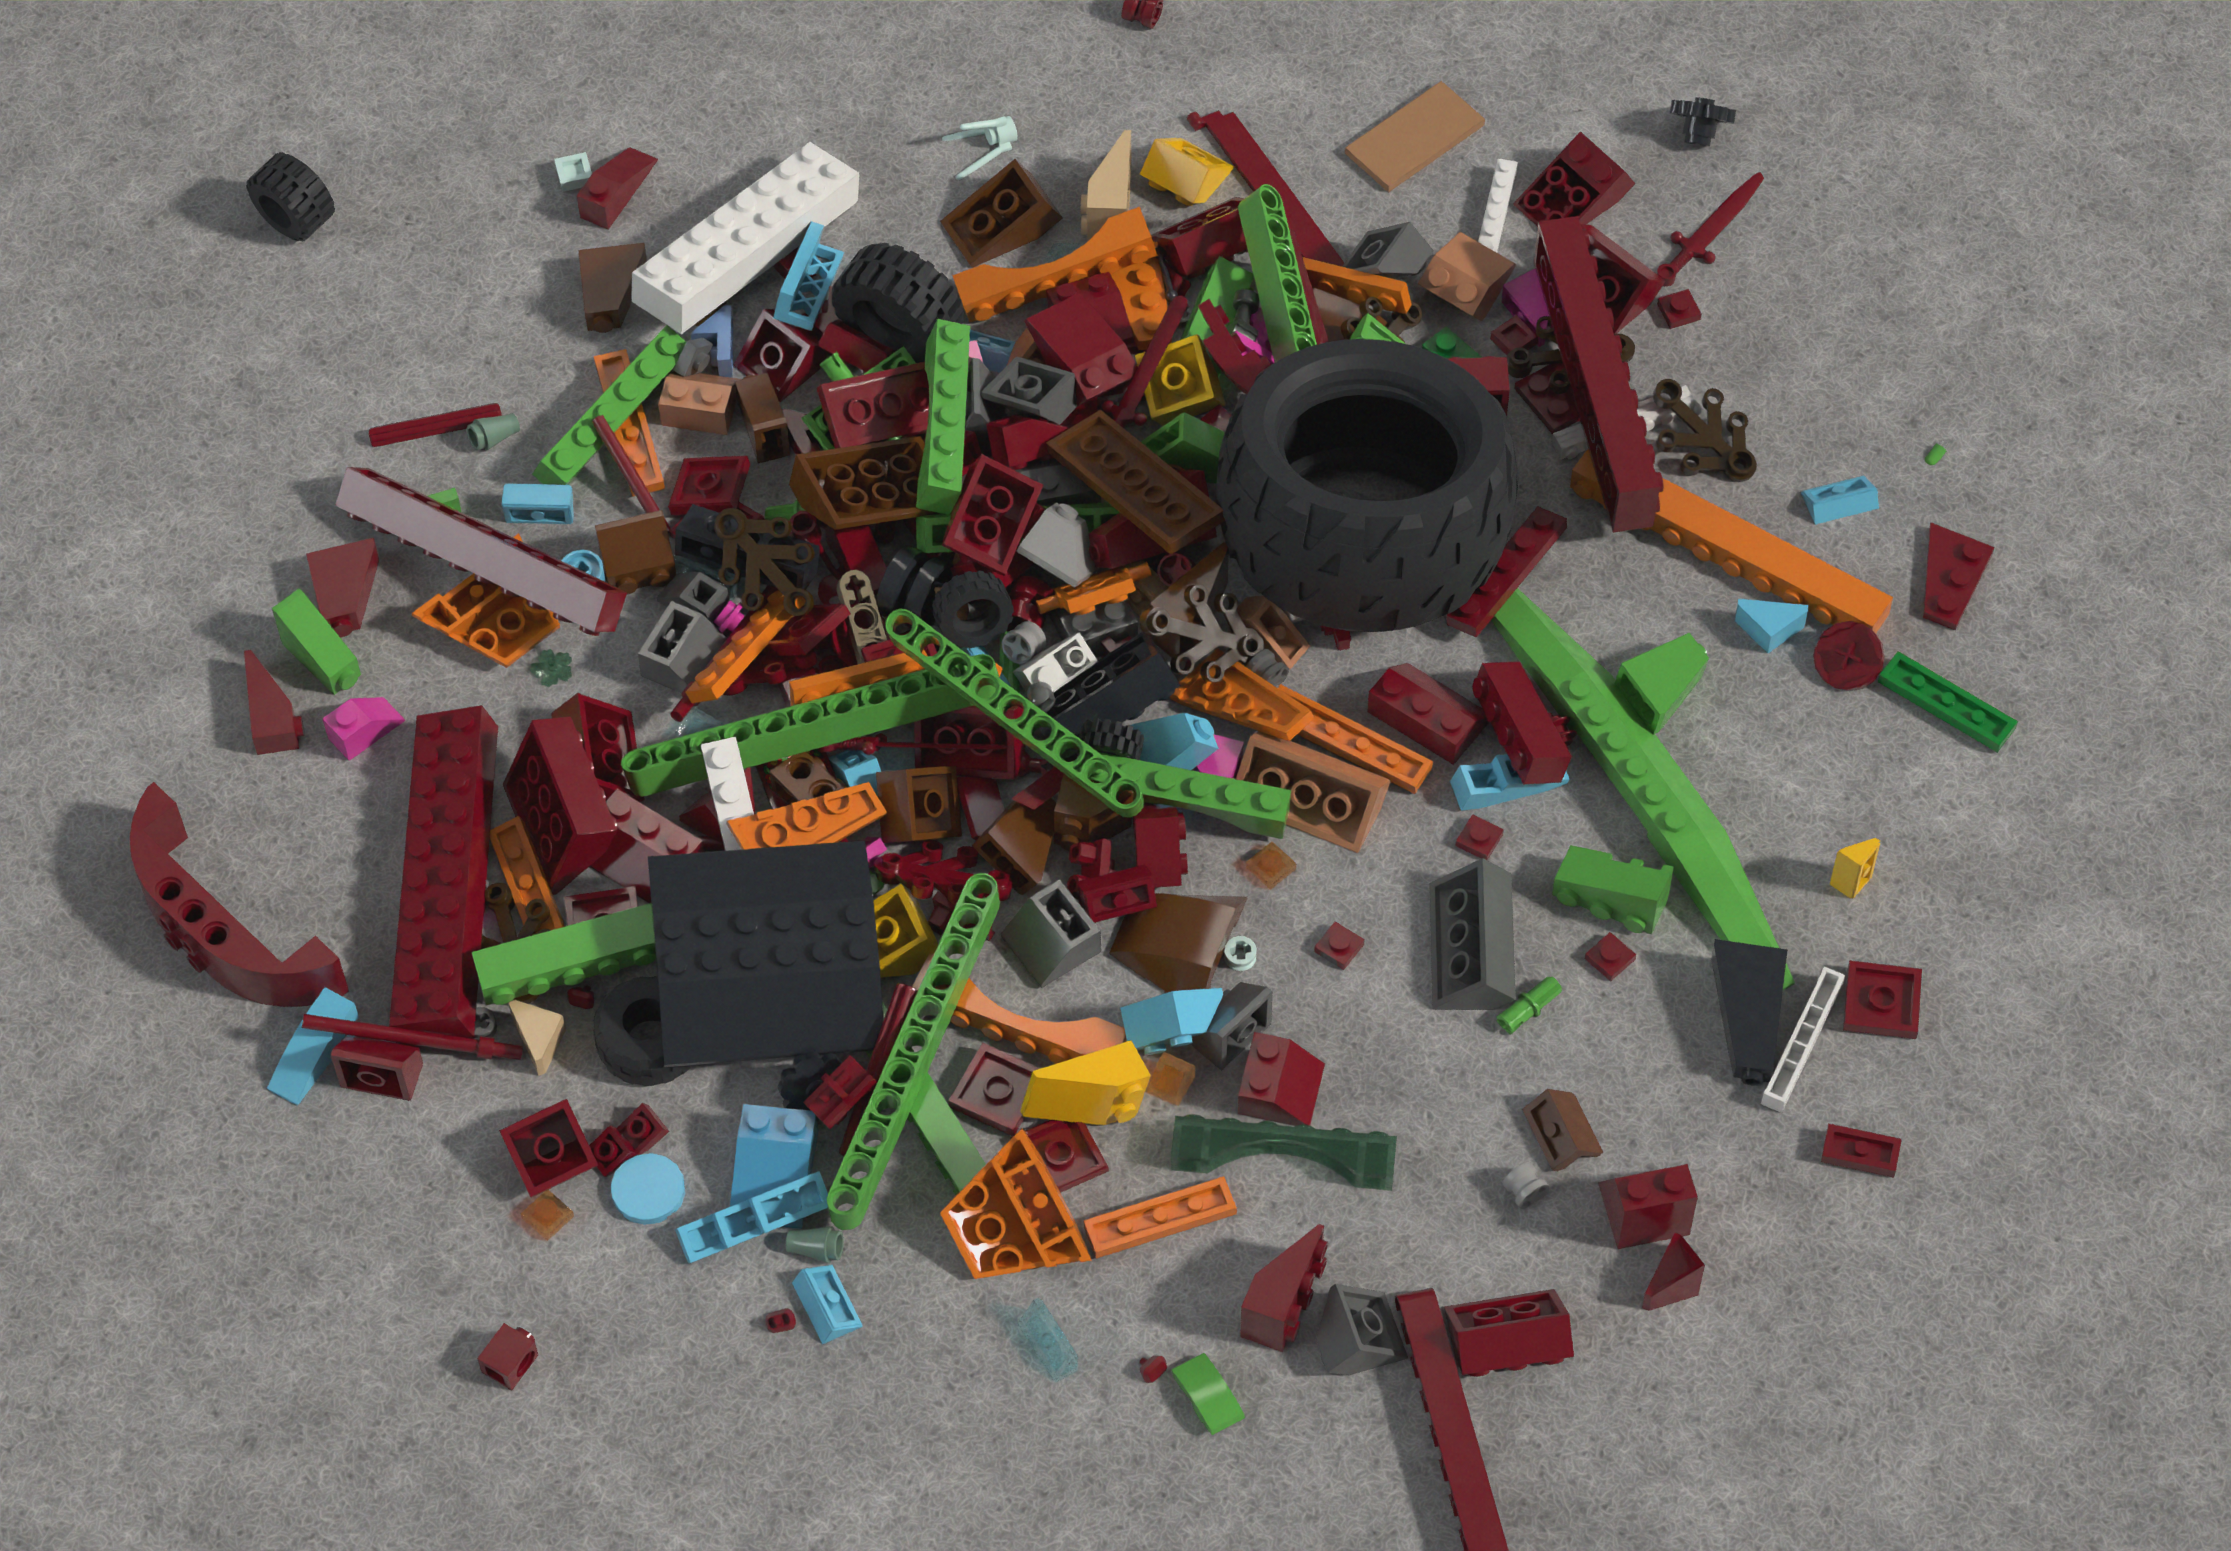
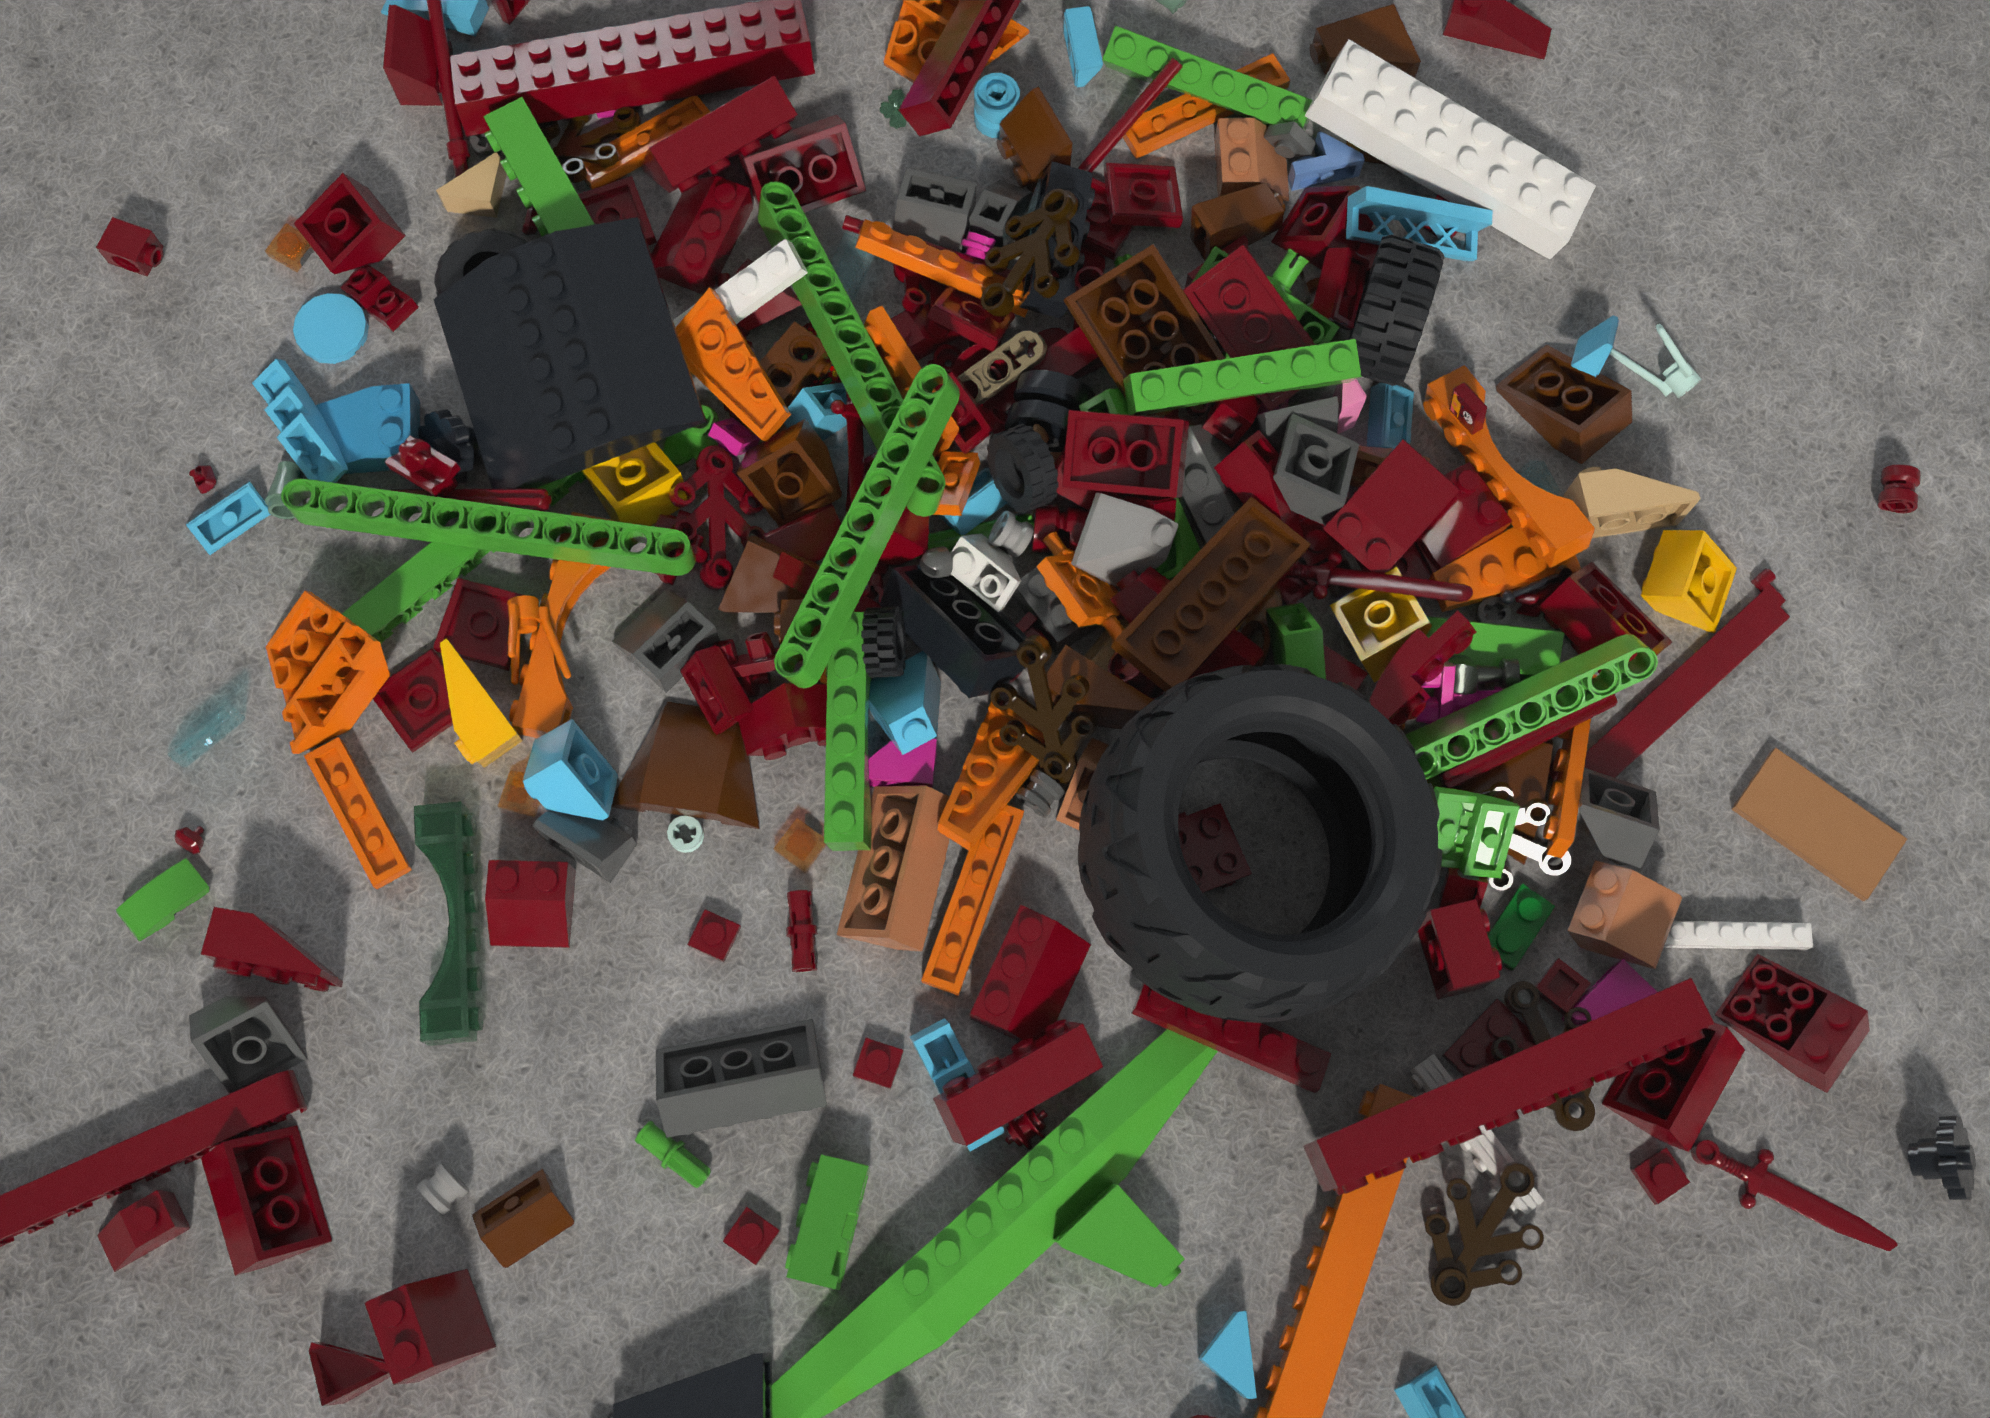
camera: 75 degrees right, 15 degrees up
(960, 178) = (1595, 347): none -> medium azure slope
(1003, 273) = (1468, 408): none -> dark red tile
(1008, 1035) = (523, 619): none -> orange plant
(1325, 875) = (801, 931): none -> dark red pin
(1517, 1436) = (142, 1228): none -> dark red slope

